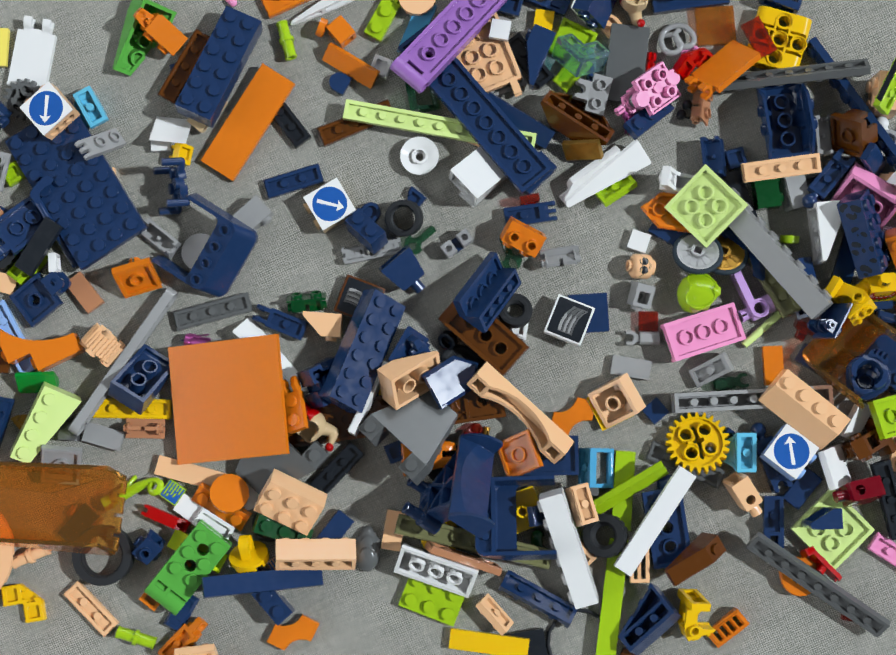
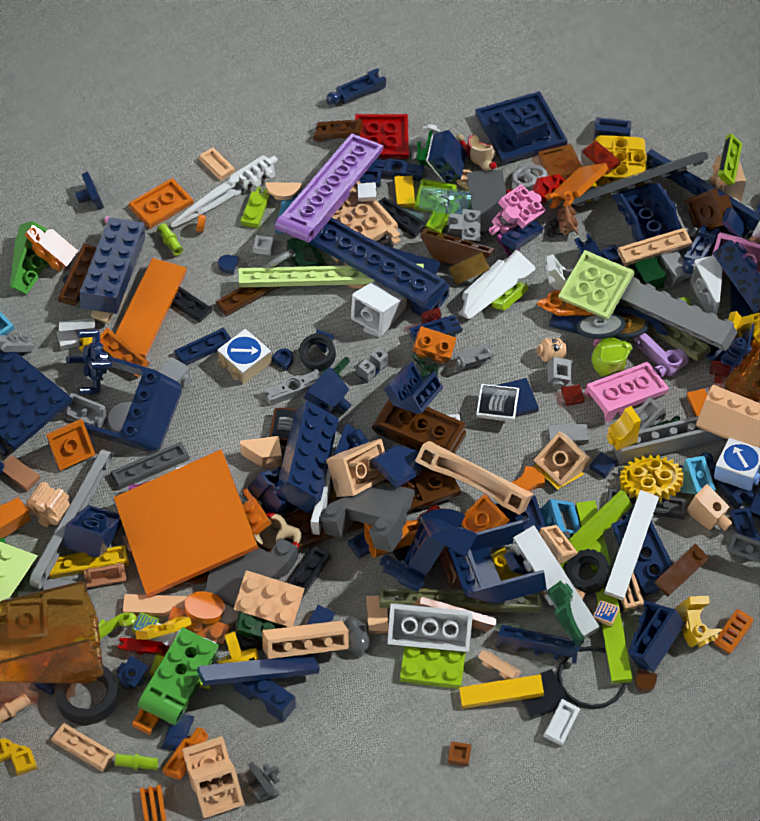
camera: 15 degrees left, 30 degrees down
(175, 513) = (157, 630): none -> yellow tile
(209, 174) = (119, 349): none -> orange plate
(282, 322) = (235, 459): dark blue hinge -> none
(299, 301) = (233, 439): dark green hinge -> none
(302, 629) = (291, 730): orange tile -> none
(341, 31) = (220, 223): orange panel -> none
(351, 65) = (235, 247): orange tile -> none
(366, 231) = (284, 366): dark blue brick -> none
(391, 94) = (282, 257): none -> light grey piece
(417, 146) = (318, 297): white dish -> none
(447, 340) = (388, 441): black tile -> none
(523, 319) = (449, 400): black tyre -> none
(537, 47) = (405, 200): dark blue slope -> none
(569, 574) = (562, 596): none -> clear green slope
(609, 586) = (606, 613): none -> tile
(638, 241) = (542, 331): white tile -> none
(644, 338) = (571, 408): light grey bar -> none
(682, 398) = (624, 430): none -> yellow arch
(761, 329) = (683, 378): yellowish green bar -> none

